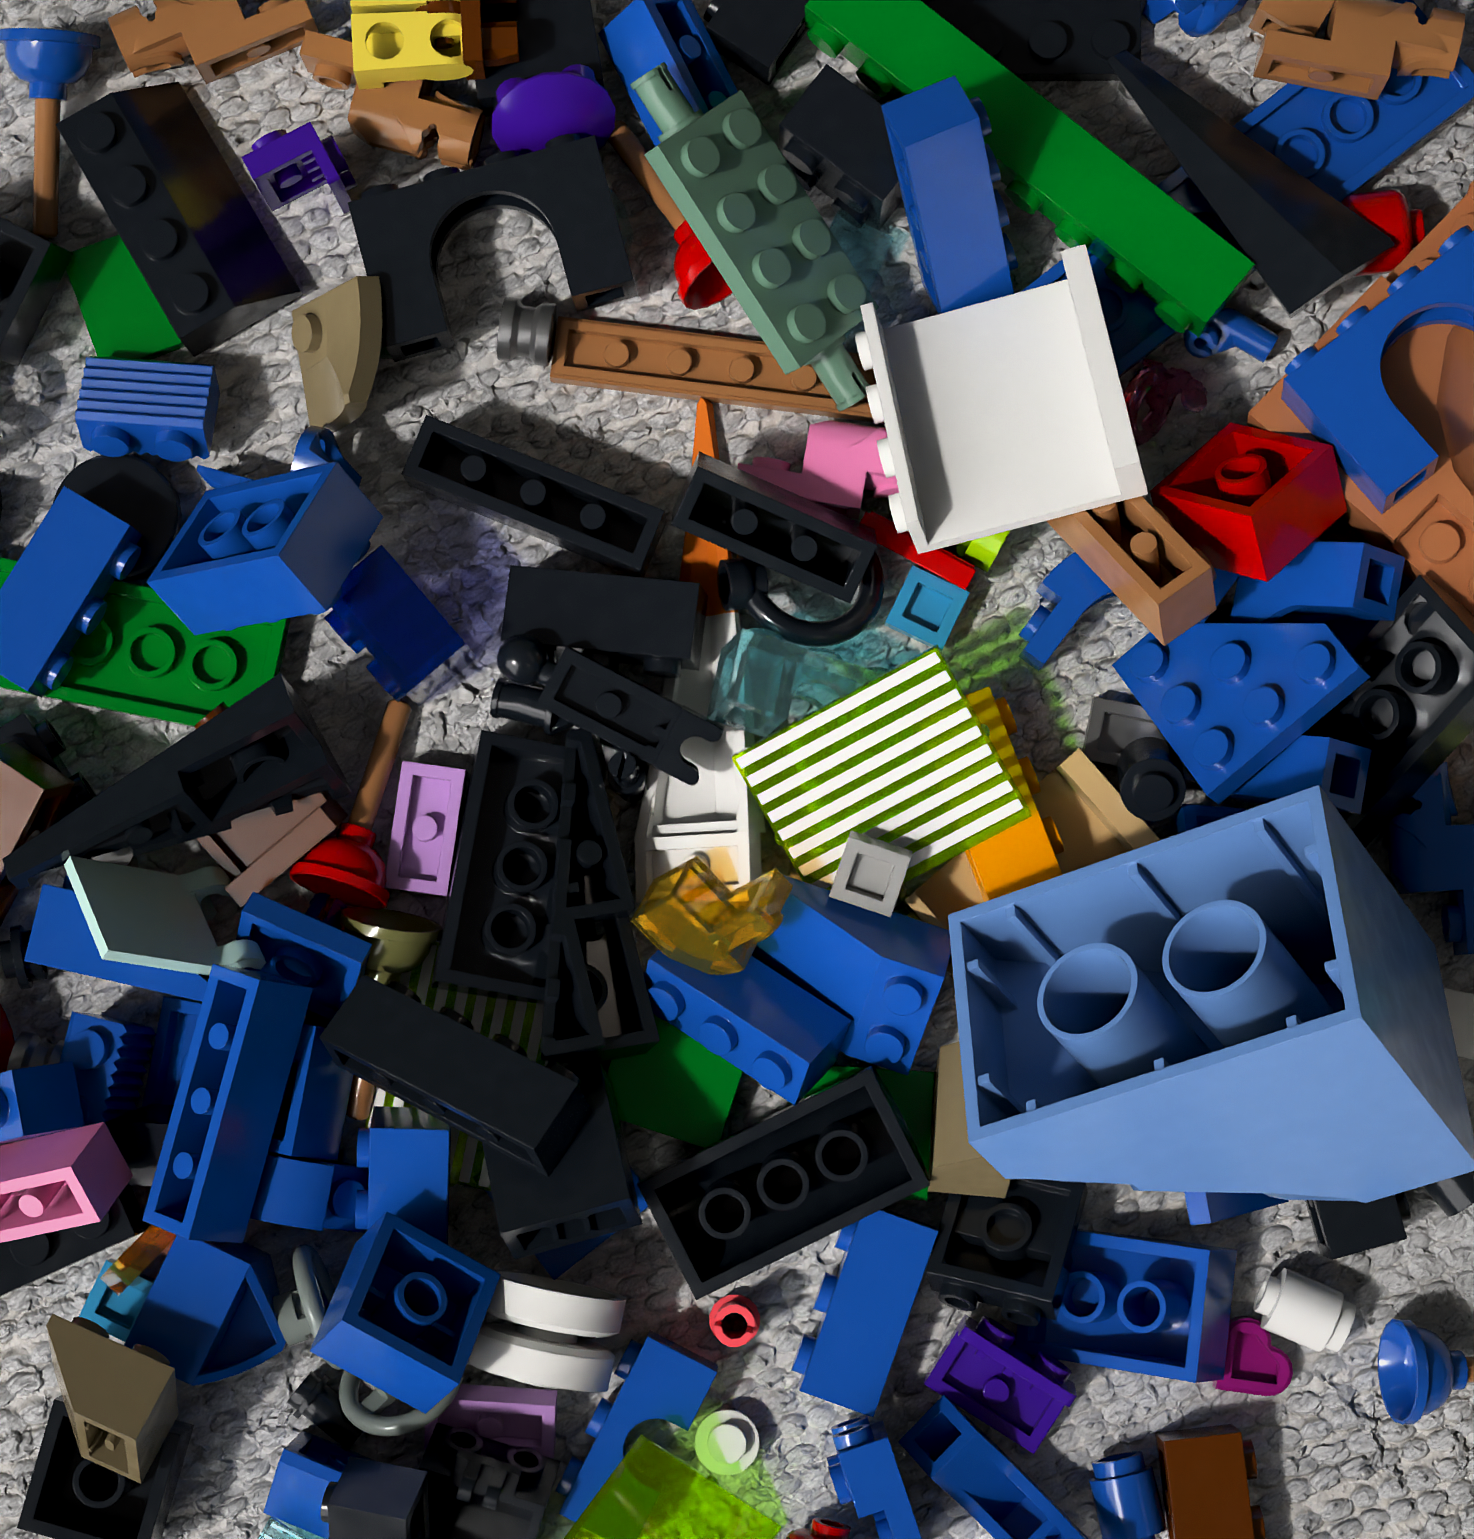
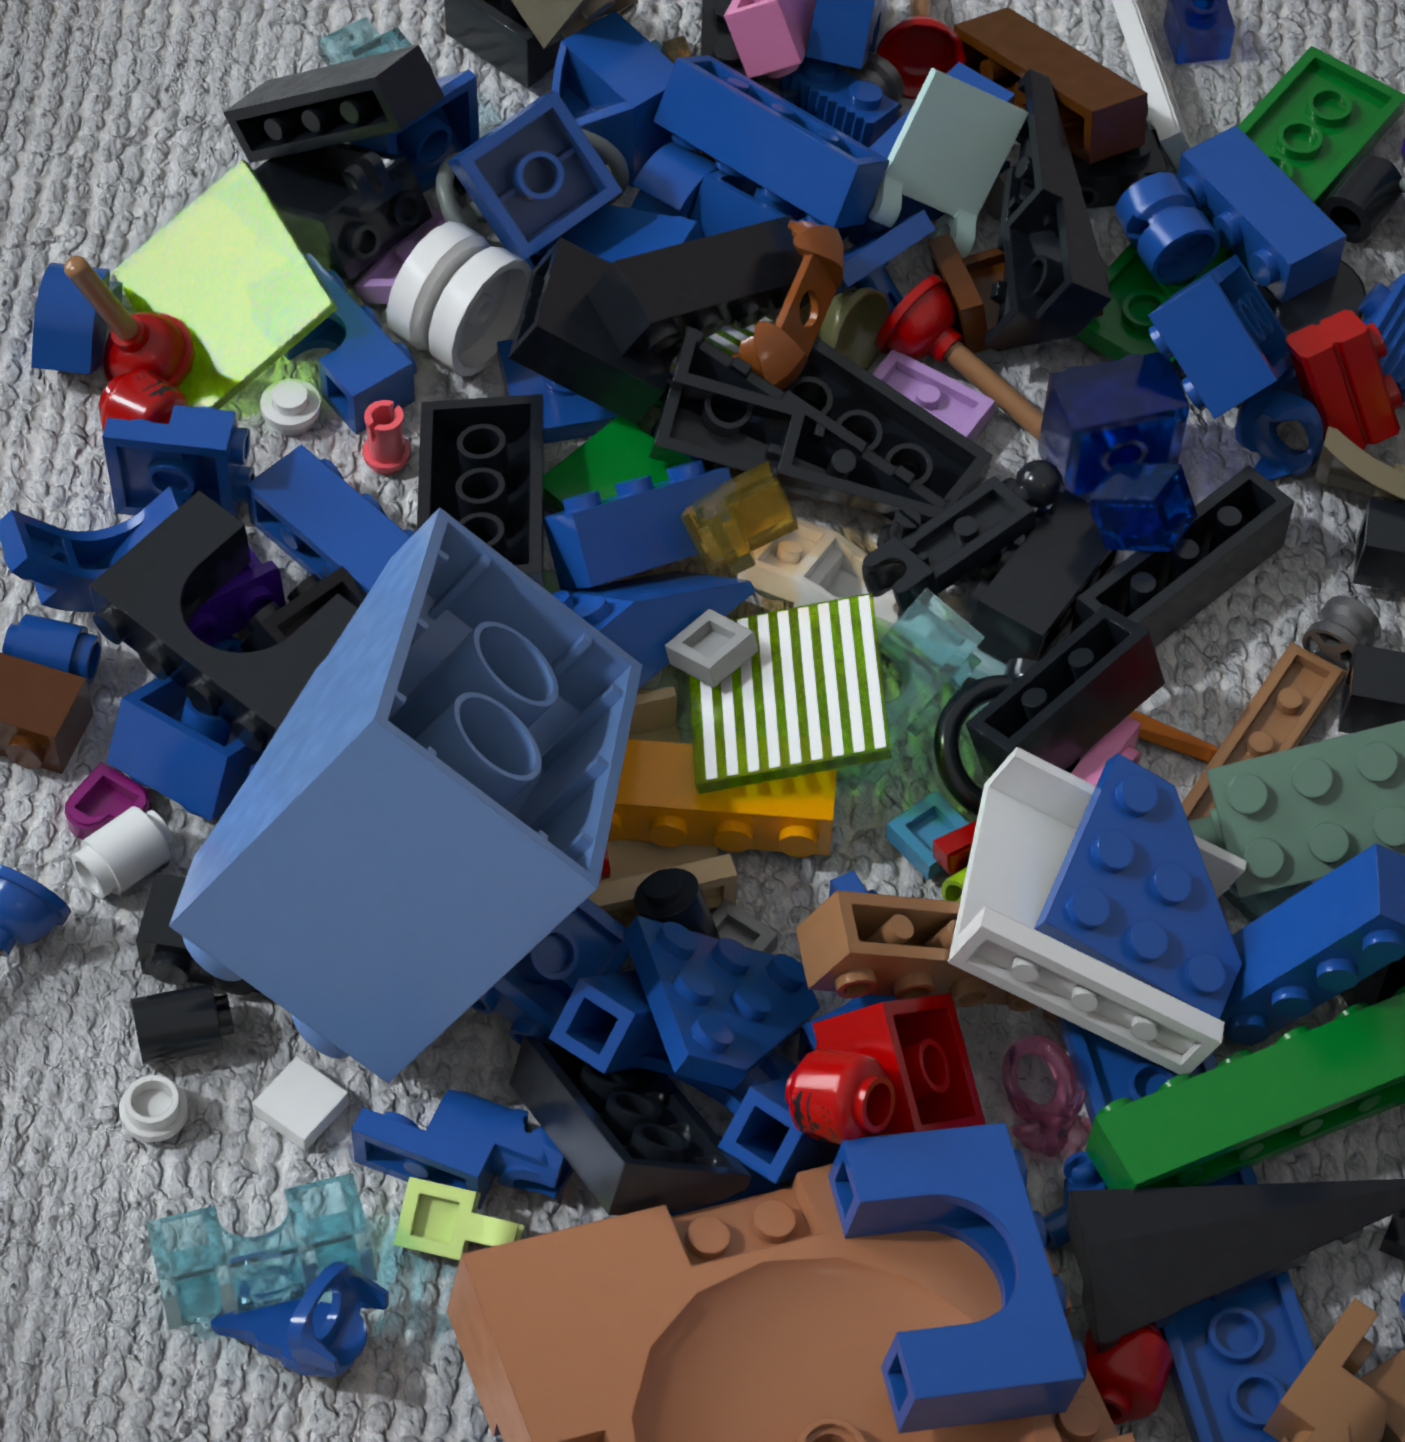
camera: 110 degrees right, 30 degrees down
(123, 673) = (1166, 228): none -> blue wheel
(248, 422) = (1344, 378): none -> red brick
(383, 969) = (783, 349): none -> dark orange piece
(516, 545) = (1143, 507): none -> clear blue brick
(968, 369) = (1141, 893): none -> blue plate
(1094, 1408) = (160, 587): none -> black arch
(1342, 519) = (839, 1096): none -> red head

